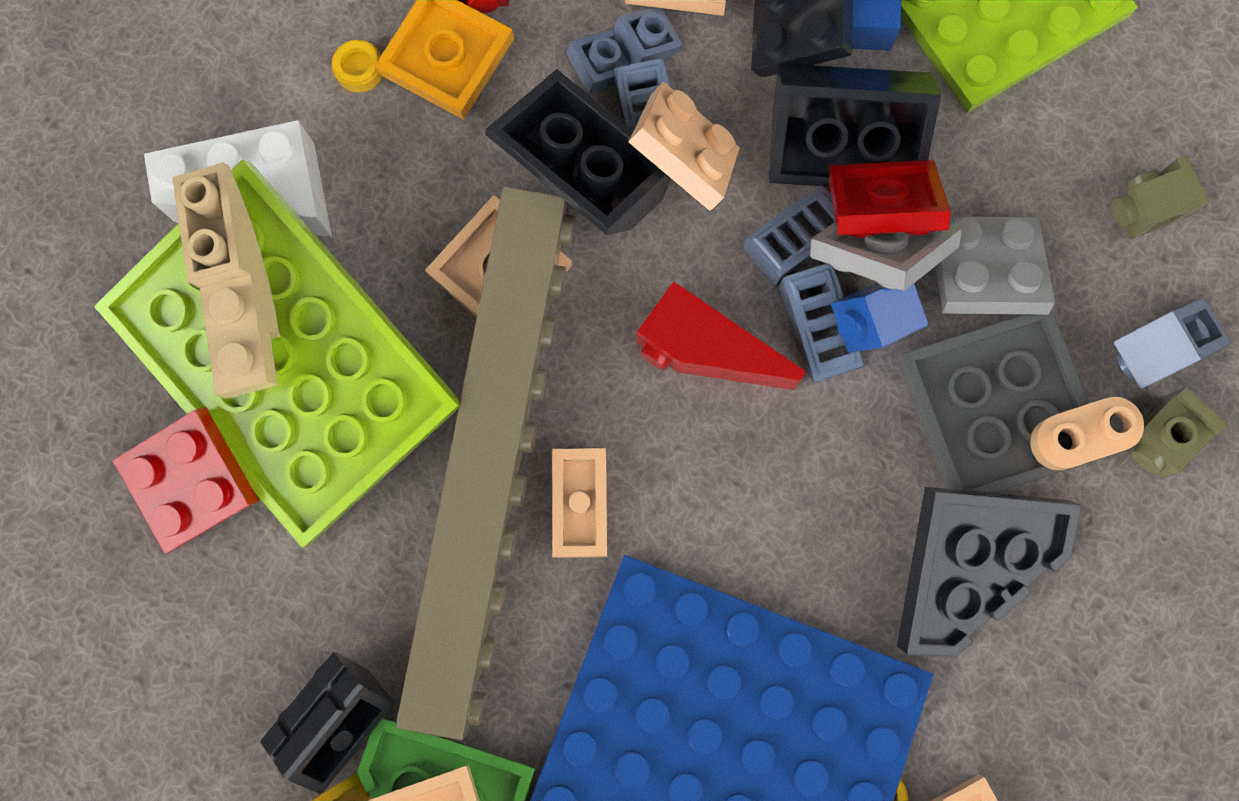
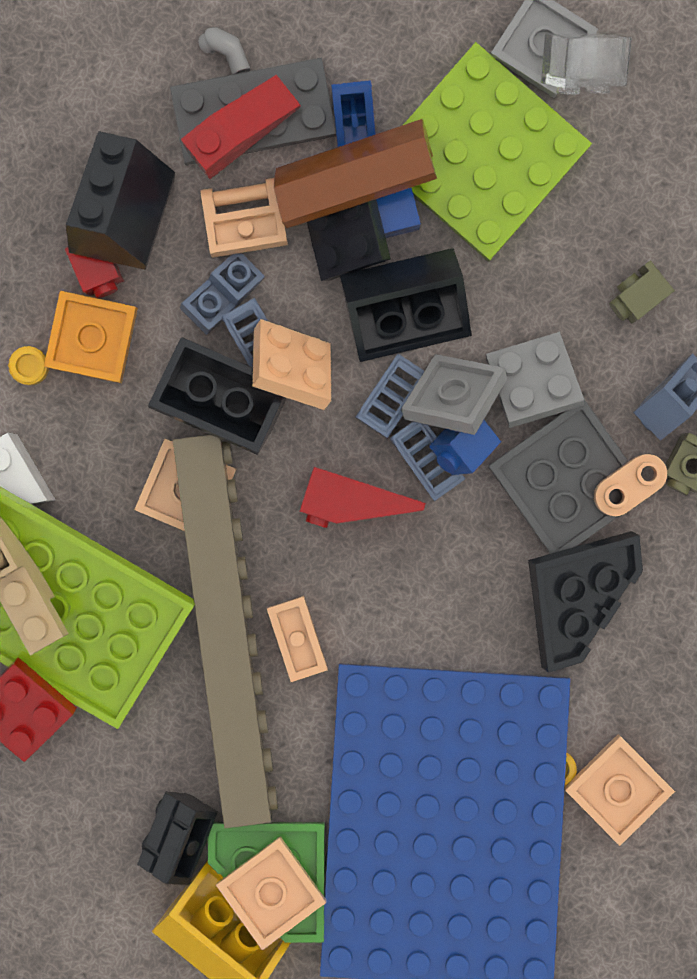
camera: 15 degrees left, 10 degrees up
(888, 198) = (446, 359): red plate -> none

